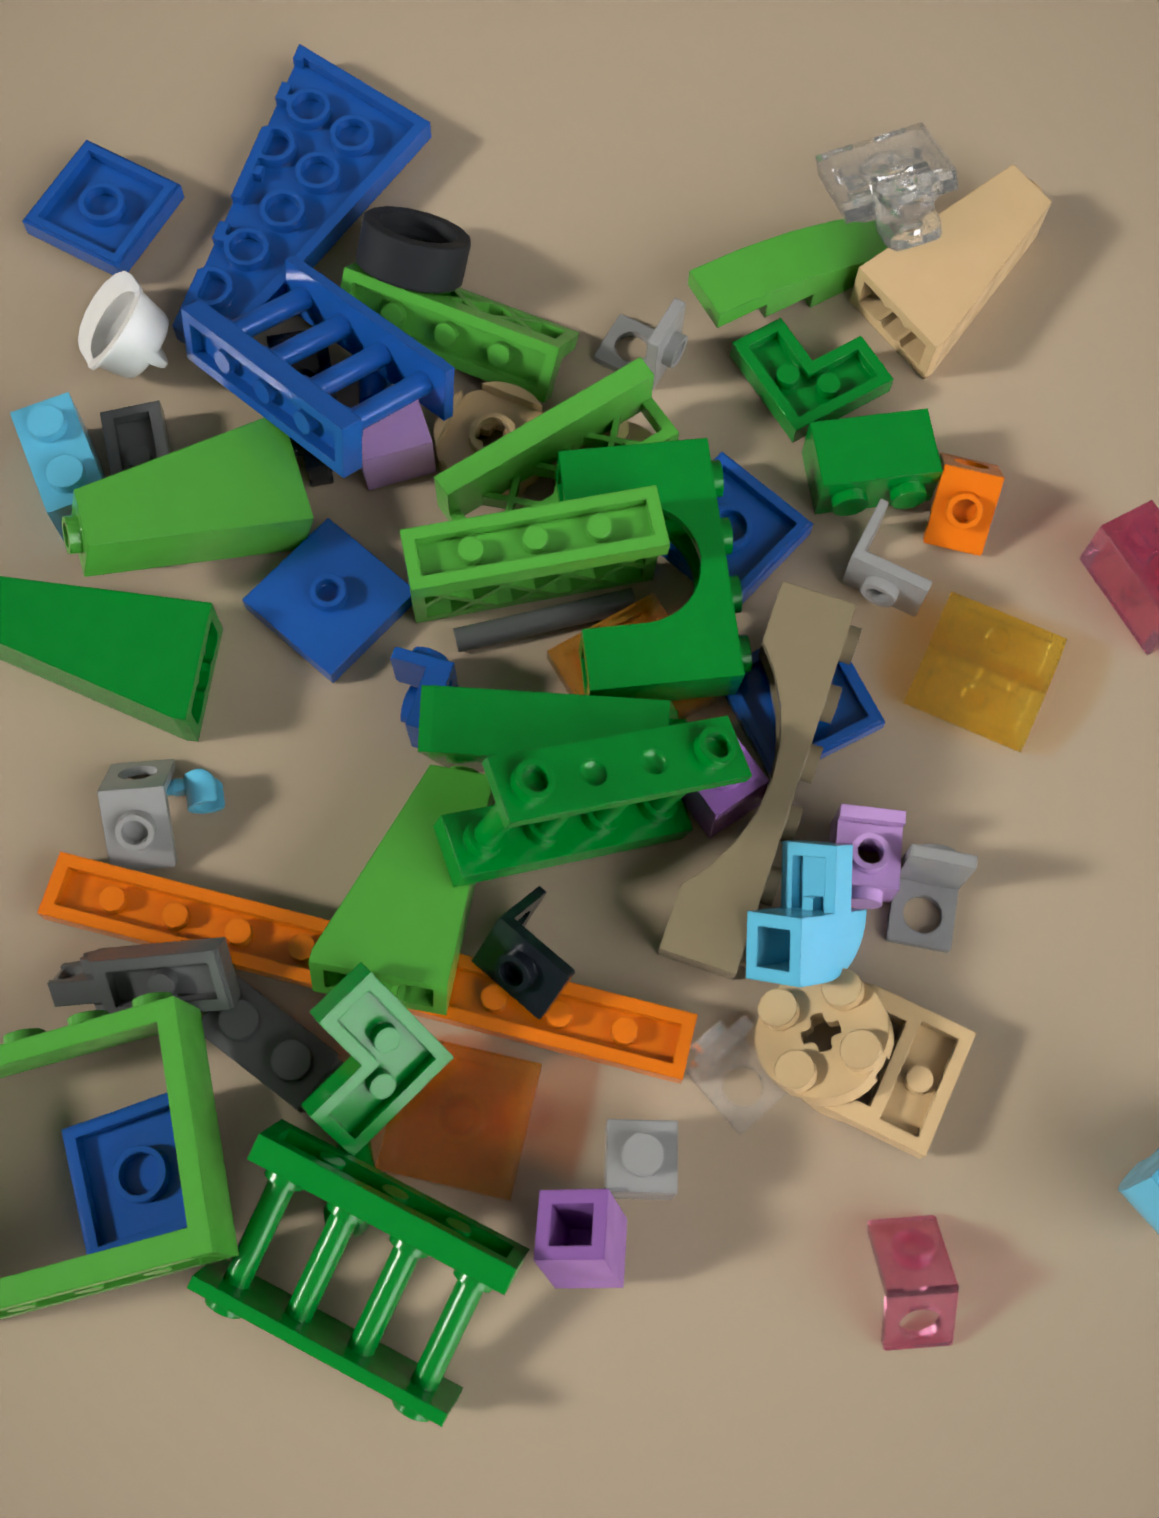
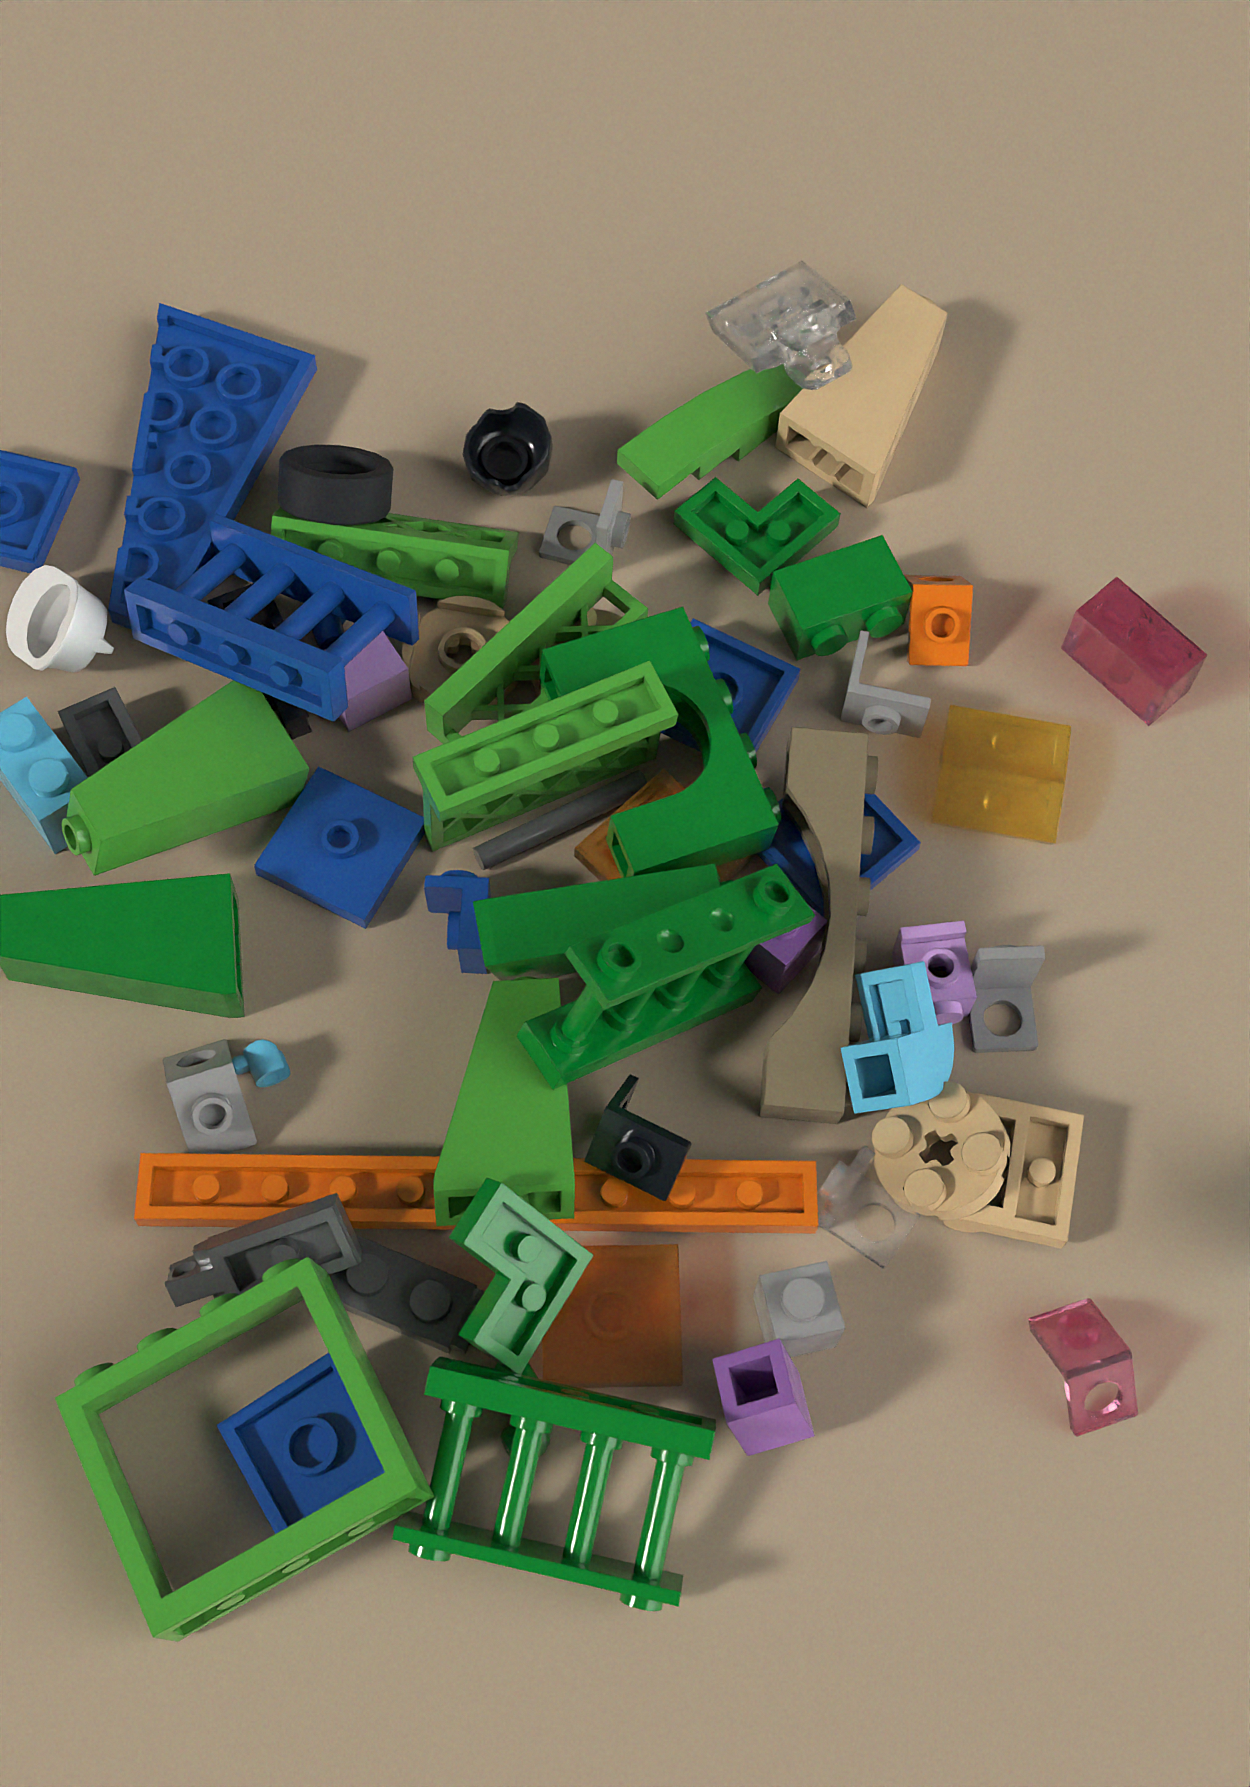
camera: 15 degrees left, 5 degrees down
(588, 250) = (508, 450): none -> black hair

